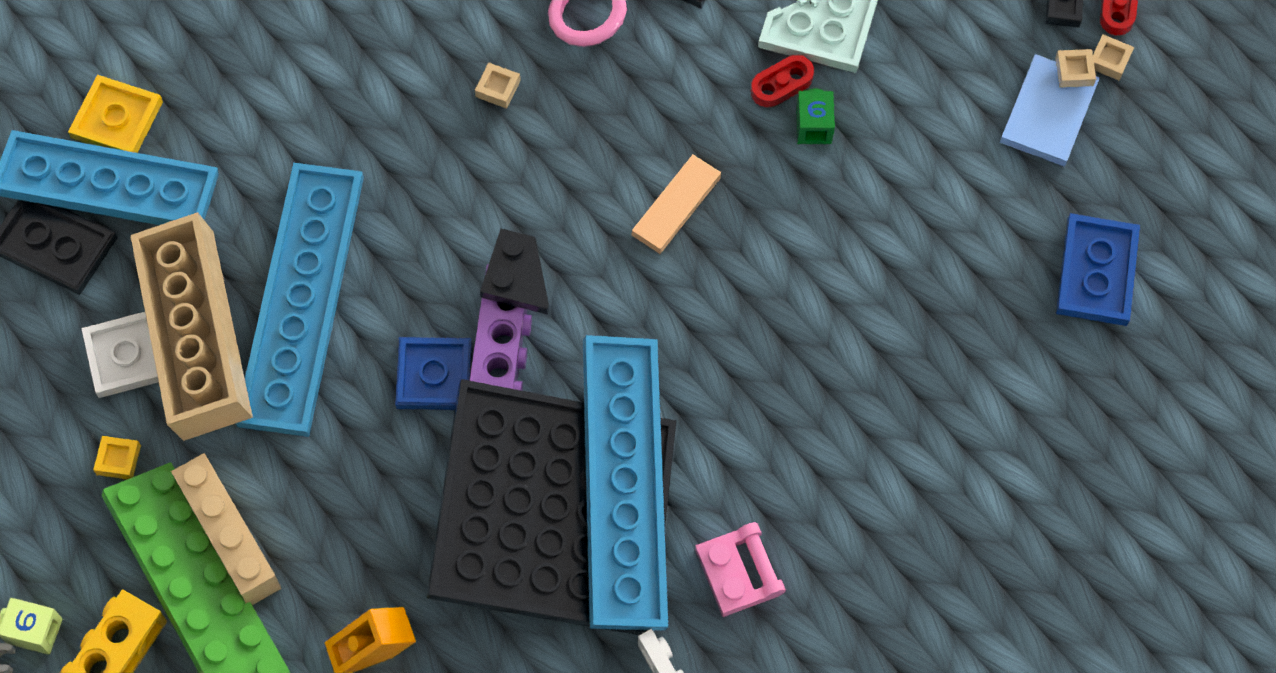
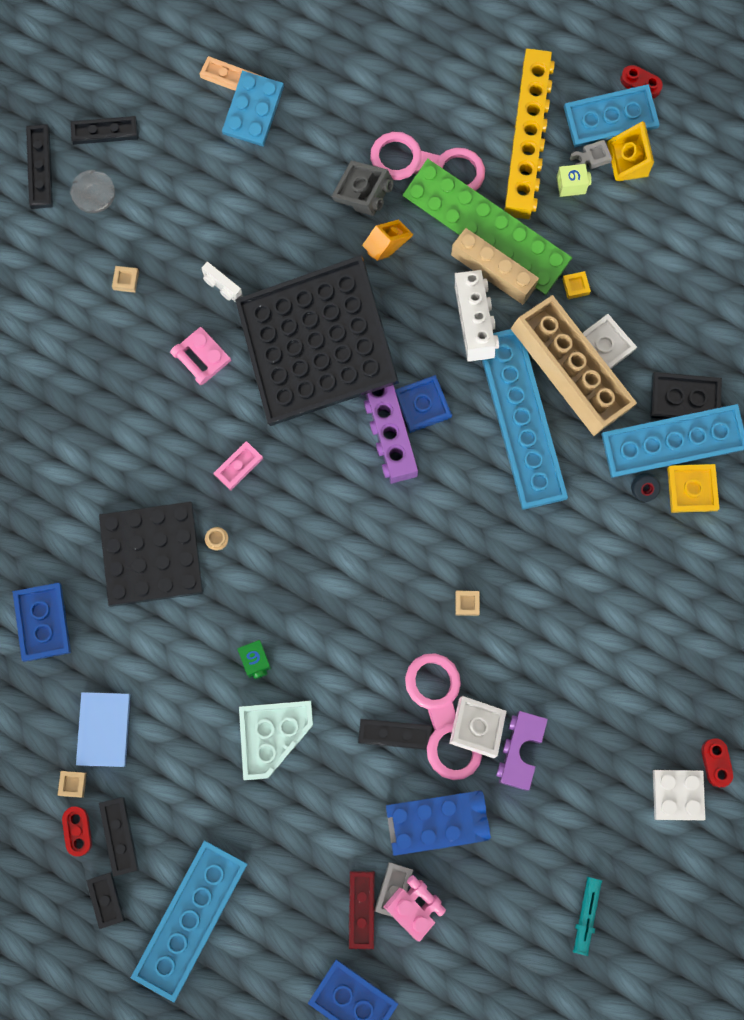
camera: 160 degrees right, 10 degrees up
(178, 144) = (642, 480): none -> black wheel
(295, 457) = (474, 315): none -> white brick
(516, 273) = (397, 469): black wing -> none
(624, 484) = (282, 369): dark azure plate -> none
(676, 204) = (321, 567): light nougat tile -> none
(742, 379) = (238, 465): none -> bright pink plate
(779, 81) = (285, 679): red plate -> none
(811, 293) = (216, 538): none -> tan plate
(913, 309) = (150, 554): none -> black plate
(1075, 68) = (92, 759): tan plate -> none

